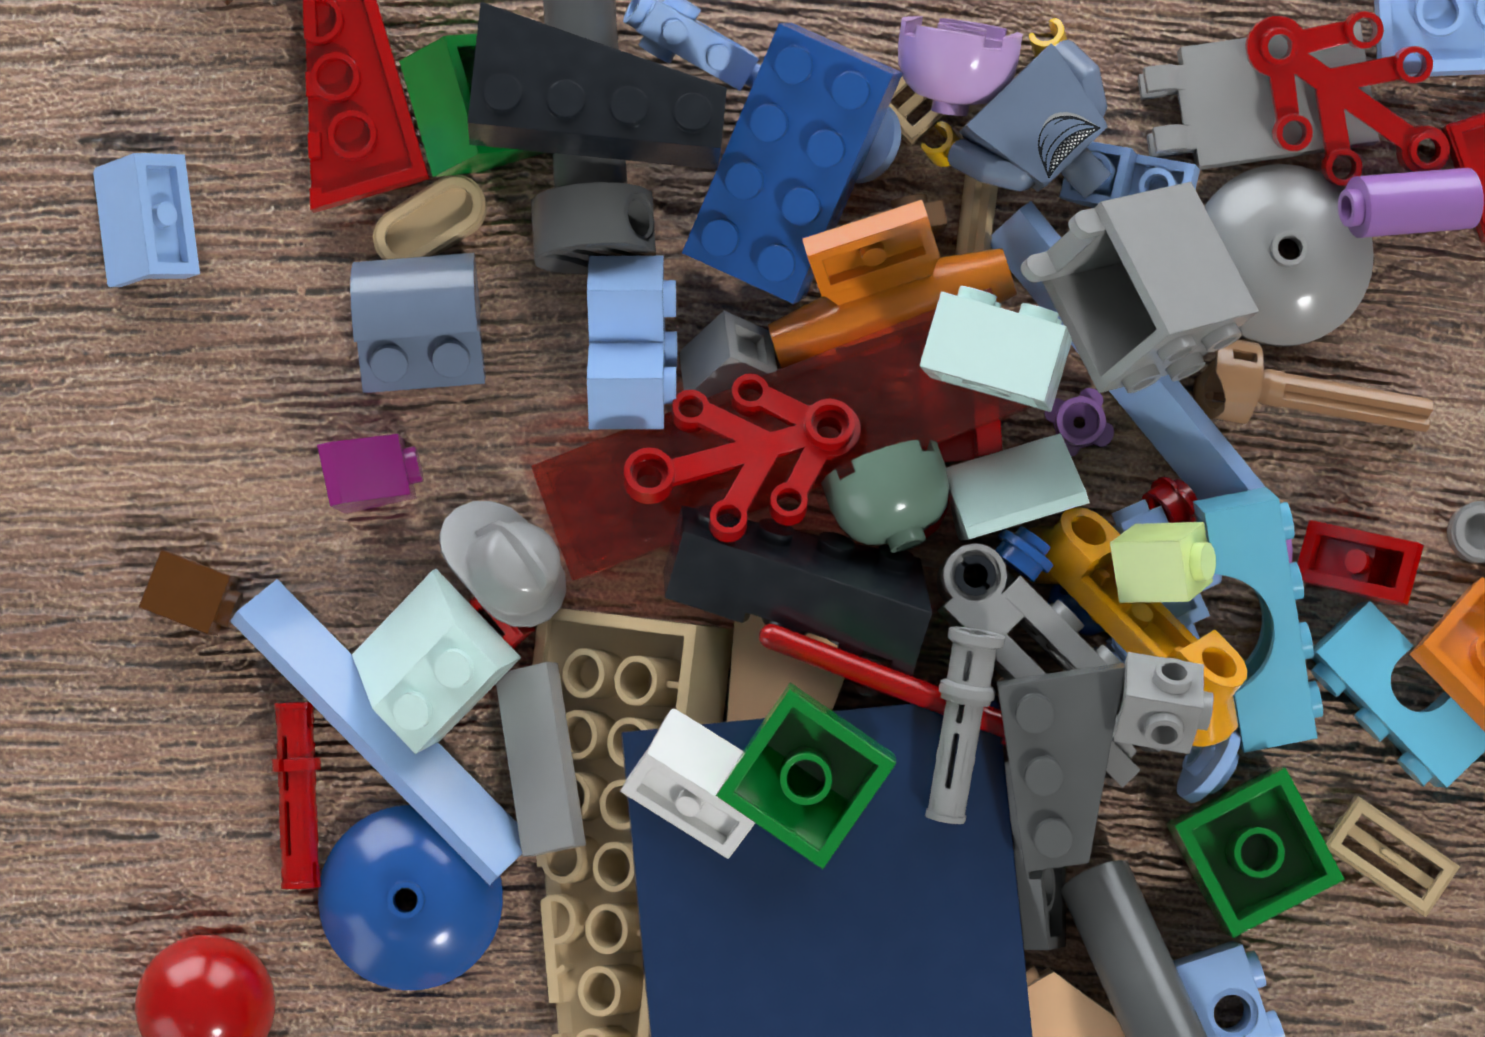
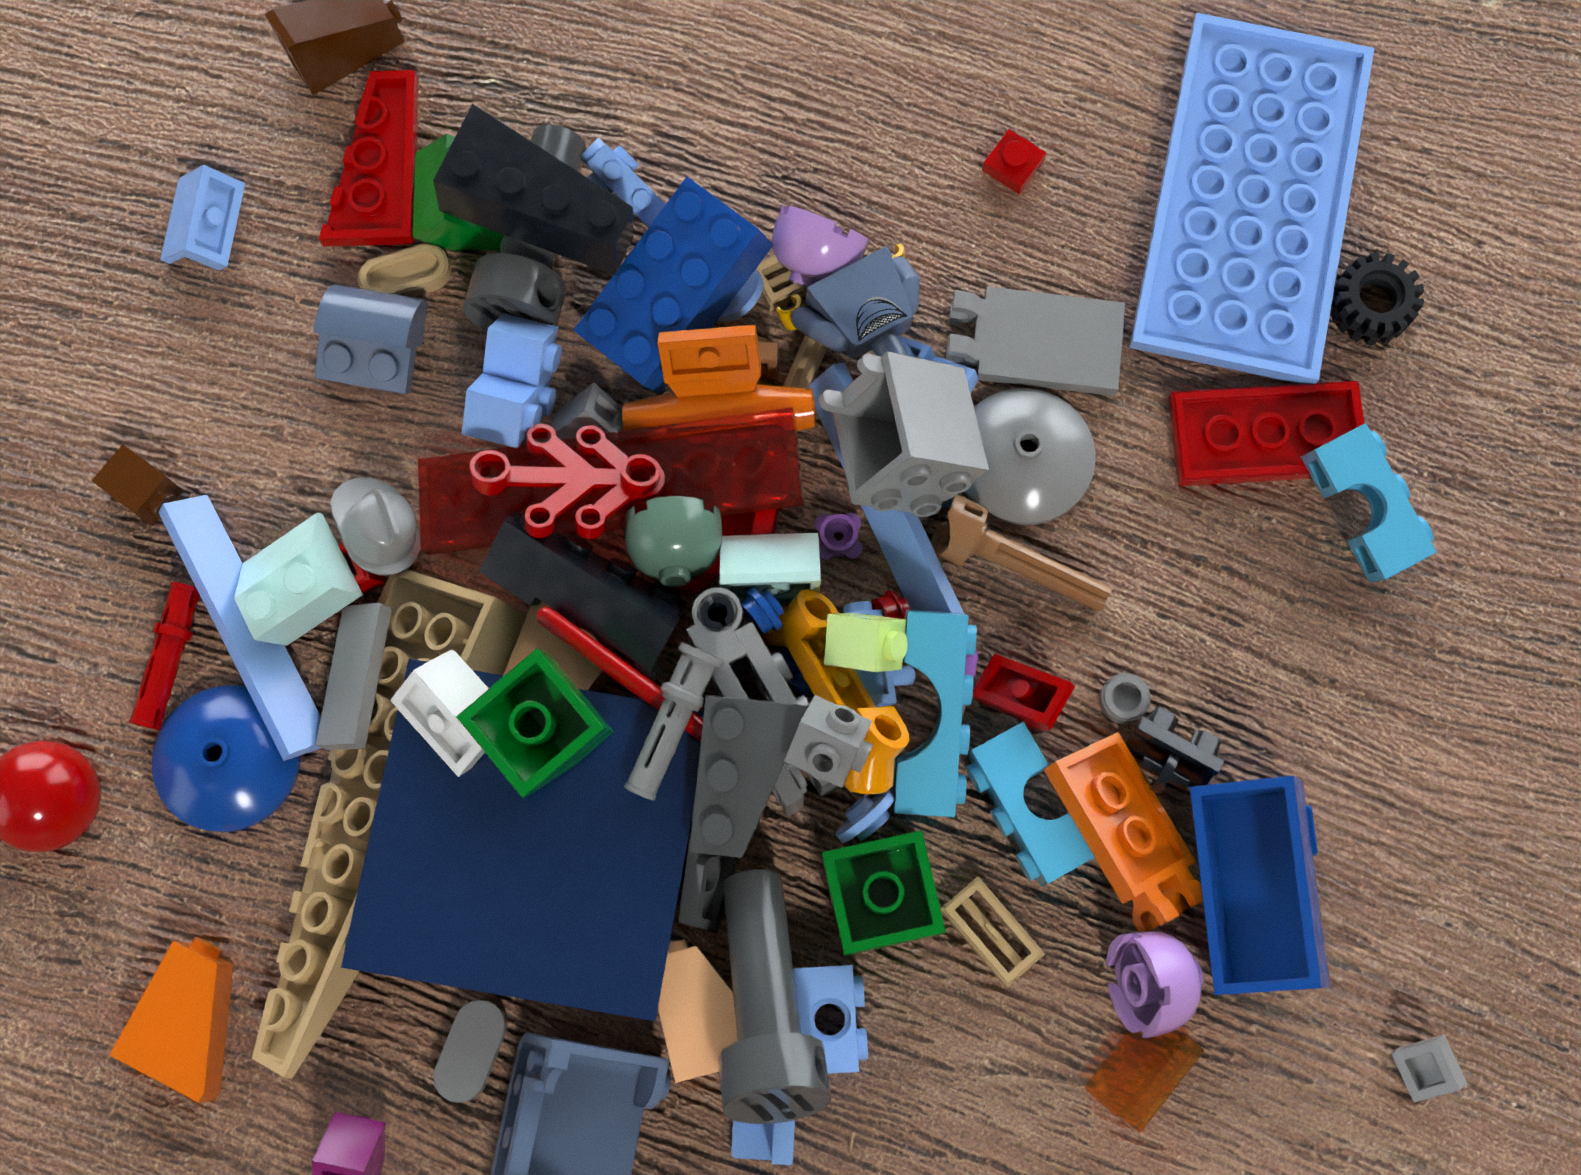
camera: 15 degrees right, 10 degrees down
(369, 472) = (292, 429): magenta slope -> none
(996, 348) = (777, 441): light aqua brick -> none
(1339, 90) = (1097, 343): red plant -> none
(1411, 202) = (1130, 436): medium lavender brick -> none

